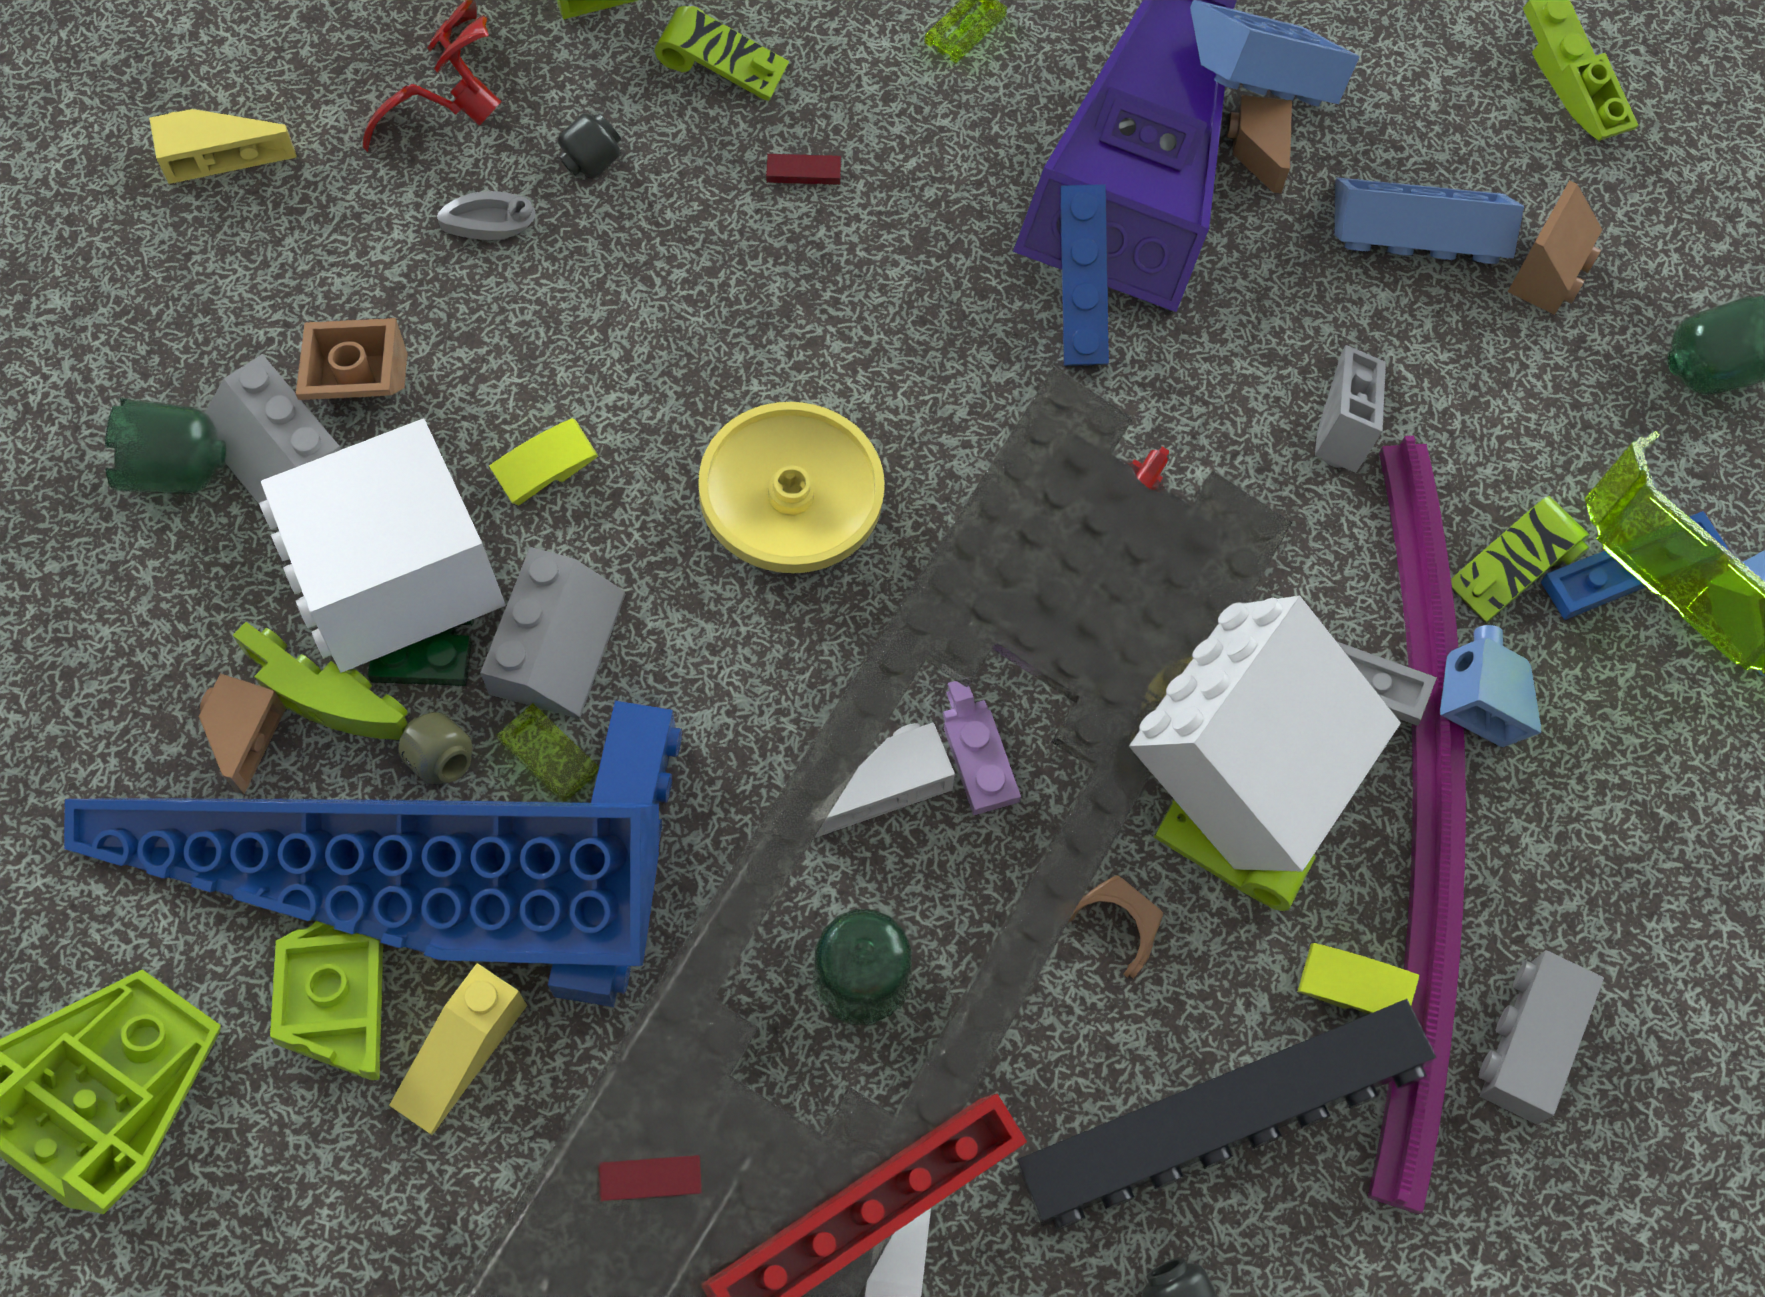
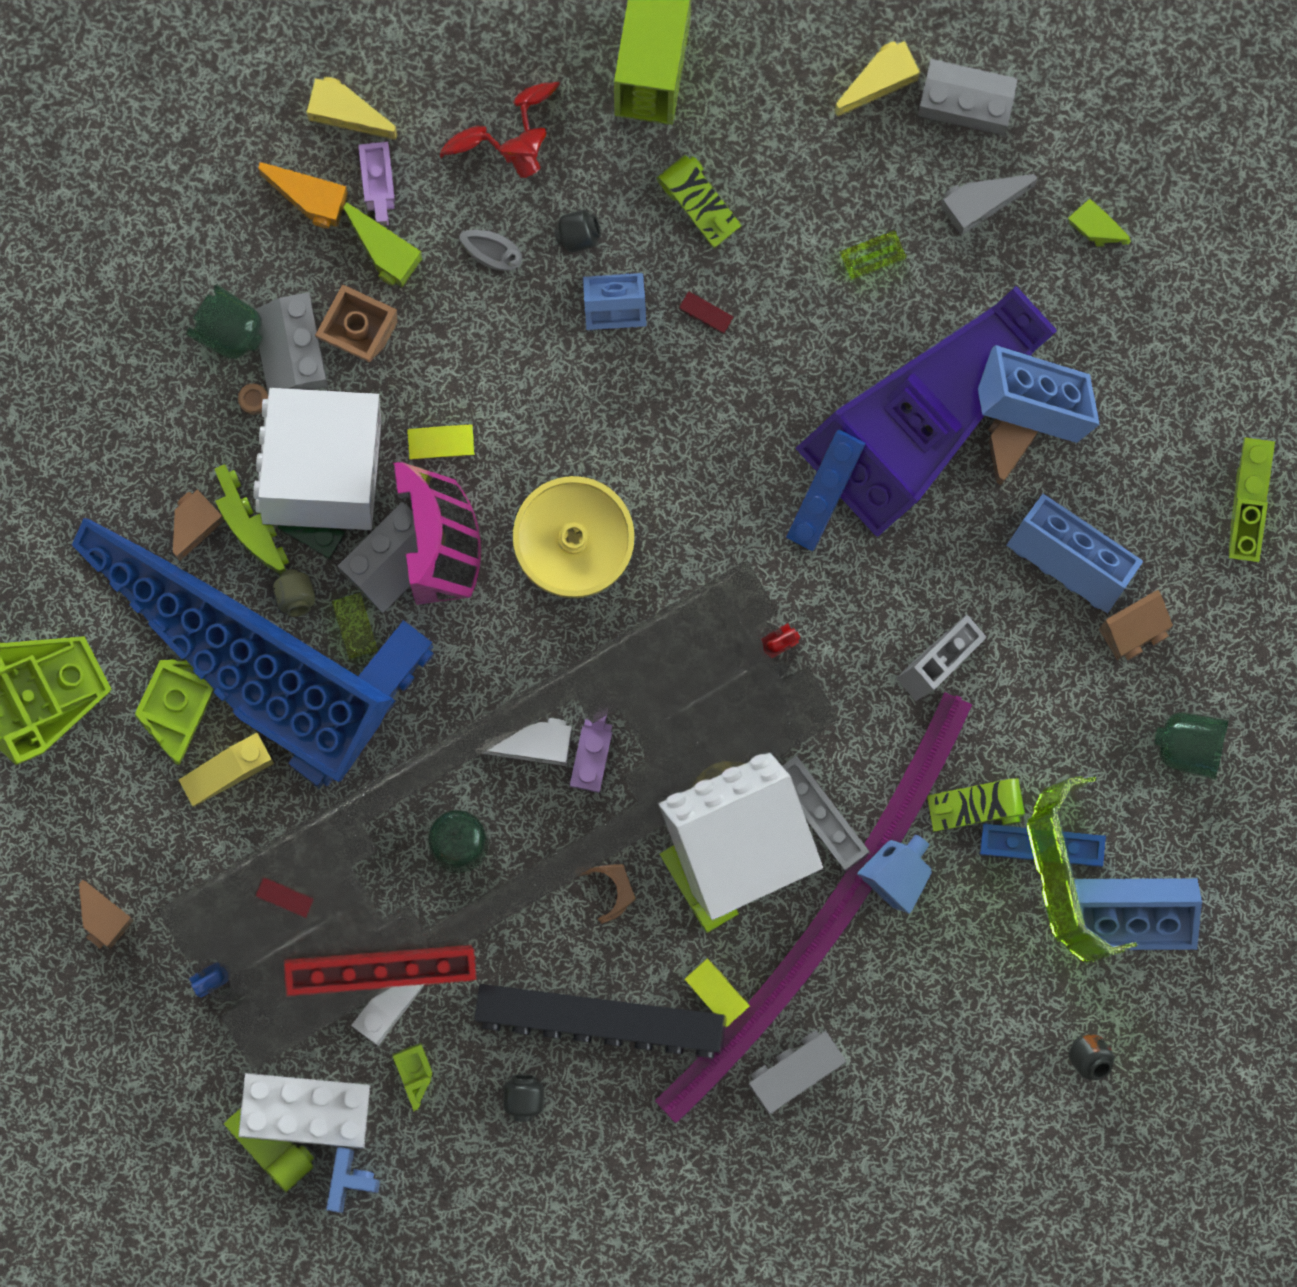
camera: 30 degrees right, 15 degrees up
(207, 255) = (313, 196): none -> light orange slope
(250, 533) = (251, 398): none -> medium nougat tile
(294, 204) = (377, 179): none -> lavender hinge
(350, 273) = (389, 253): none -> lime slope
(619, 568) = (445, 536): none -> dark pink windscreen
(684, 201) = (614, 301): none -> medium blue bracket

